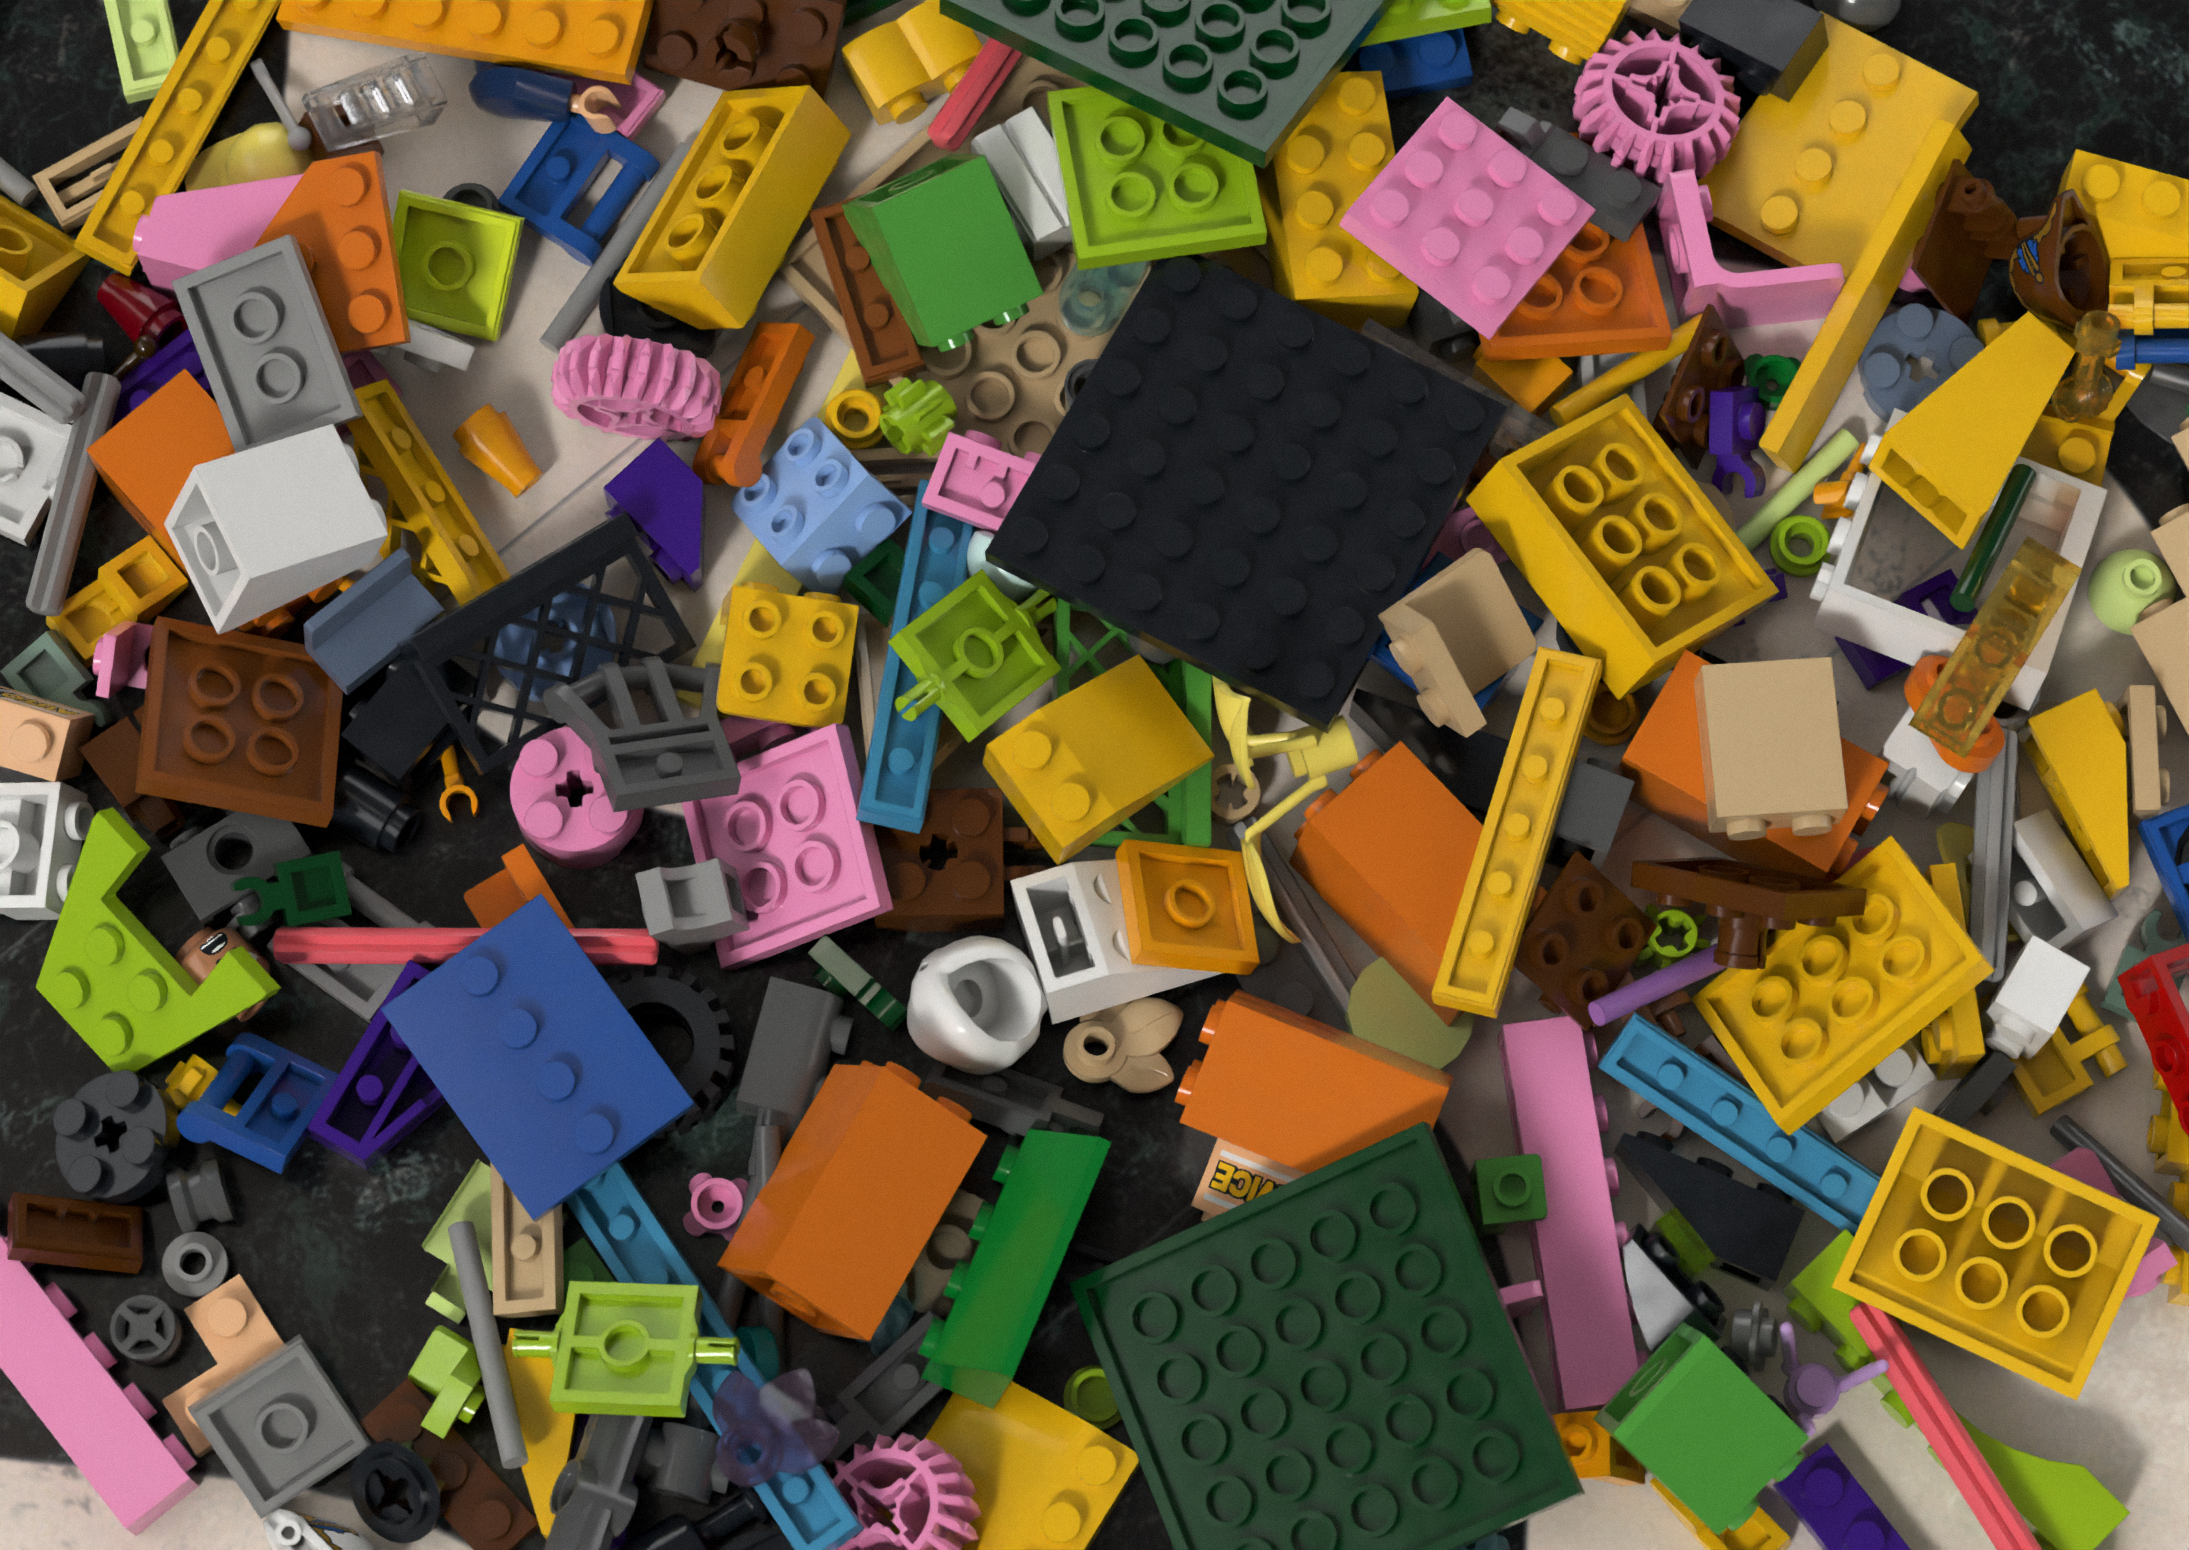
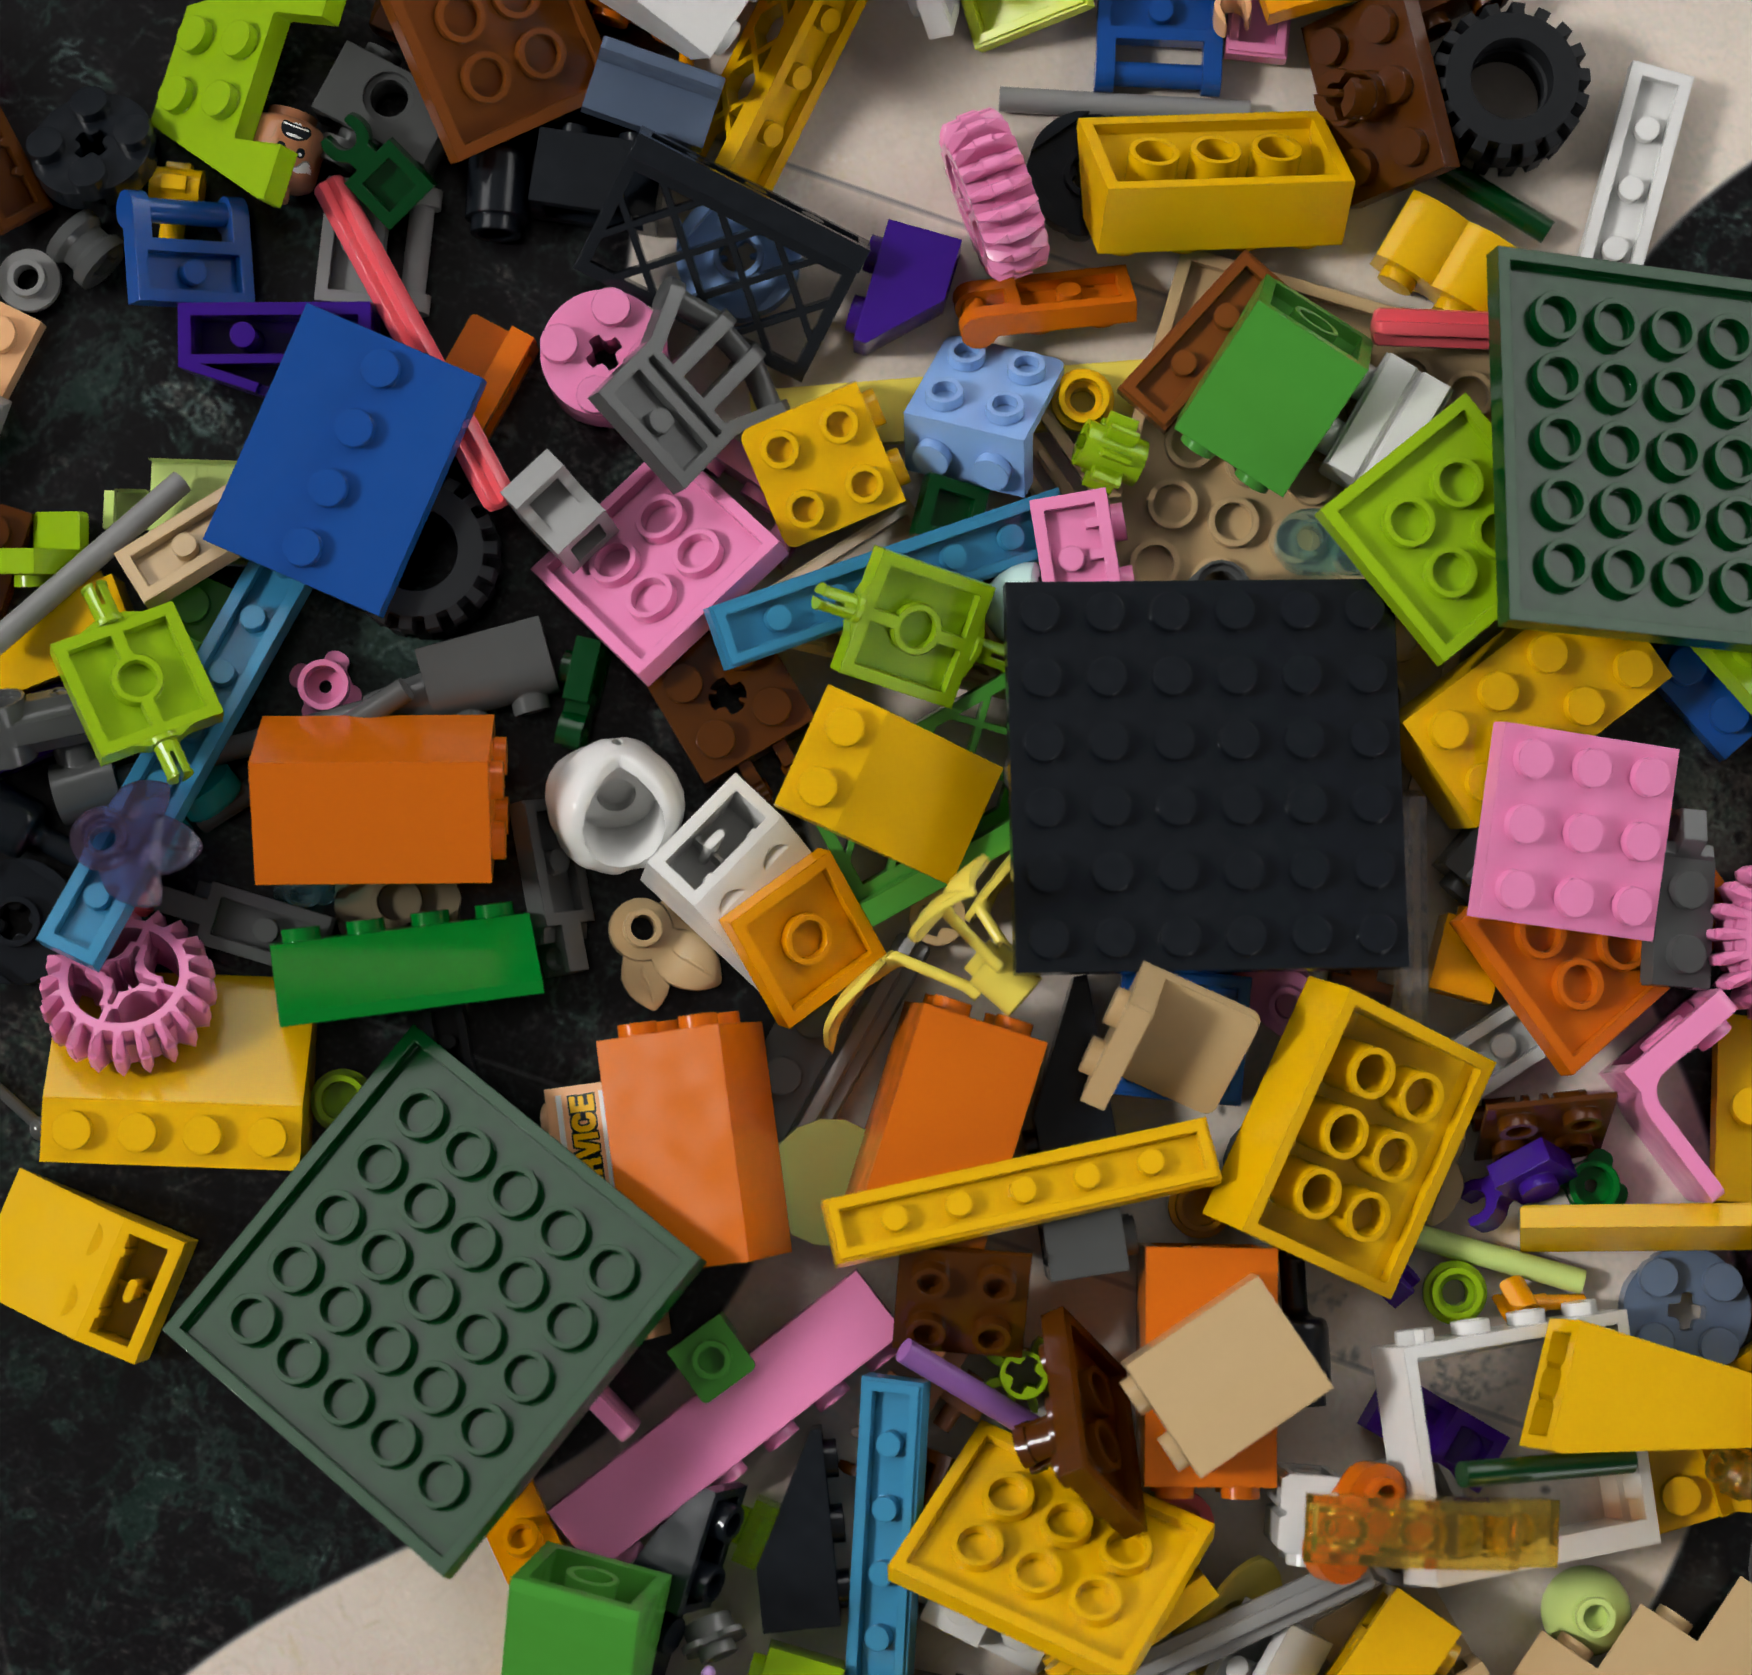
camera: 60 degrees right, 10 degrees up
(454, 784) = (563, 252): light orange hand -> none
(496, 448) = (877, 110): light orange cone -> none
(1622, 376) = (1516, 1050): yellow bar -> none

